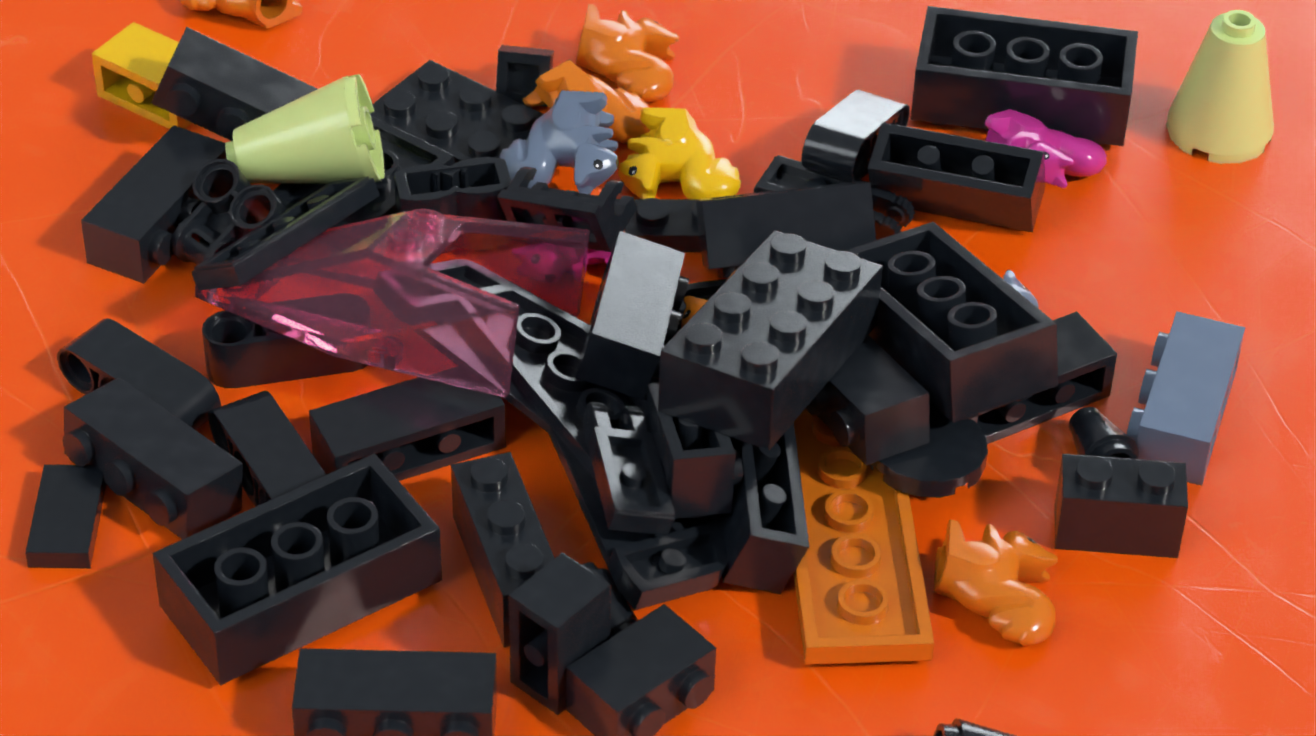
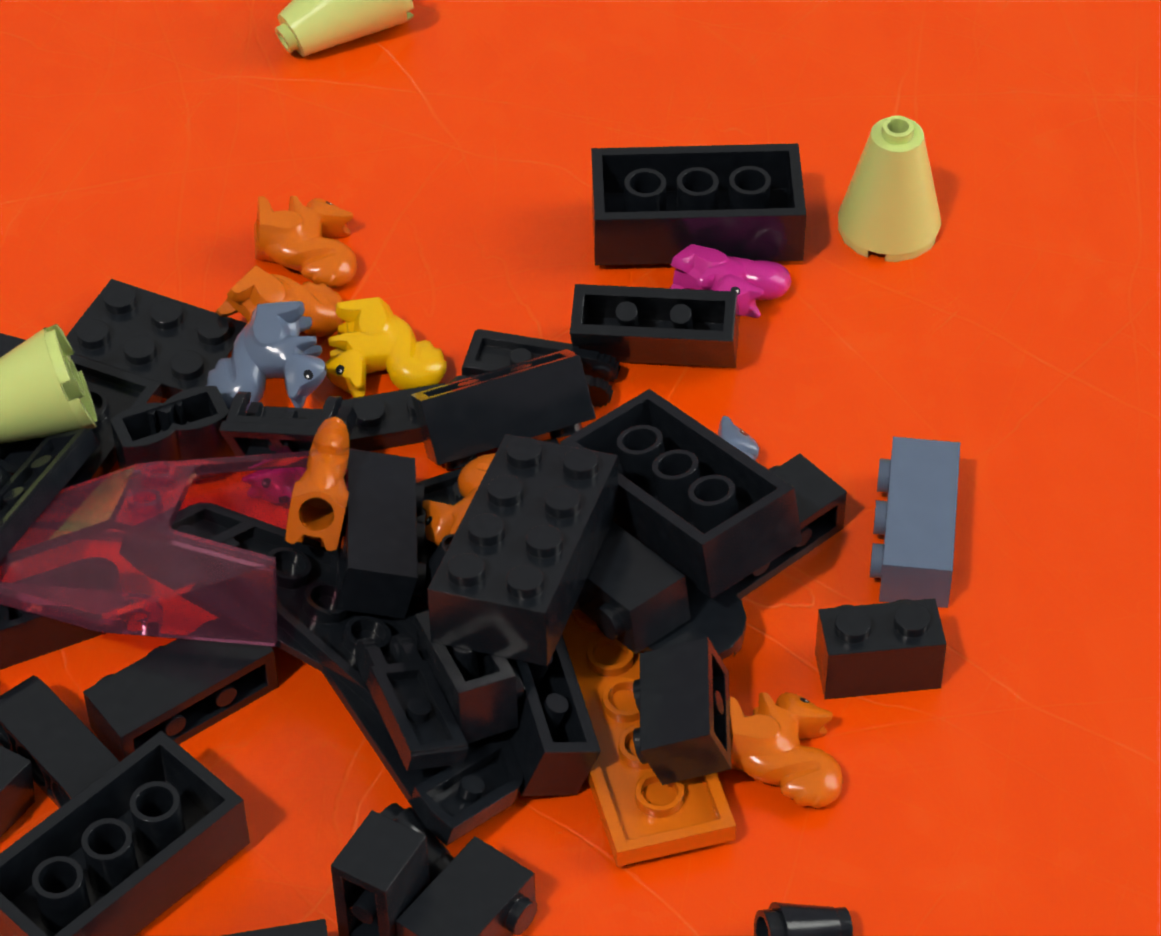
camera: 10 degrees left, 5 degrees up
(498, 530) = (300, 791): black brick -> none
(519, 70) = (208, 278): black tile -> none
(581, 265) = (321, 492): none -> orange animal
(846, 135) = (543, 298): black beam -> none
(902, 523) = (683, 711): none -> black brick
(1098, 436) = (846, 581): black cone -> none

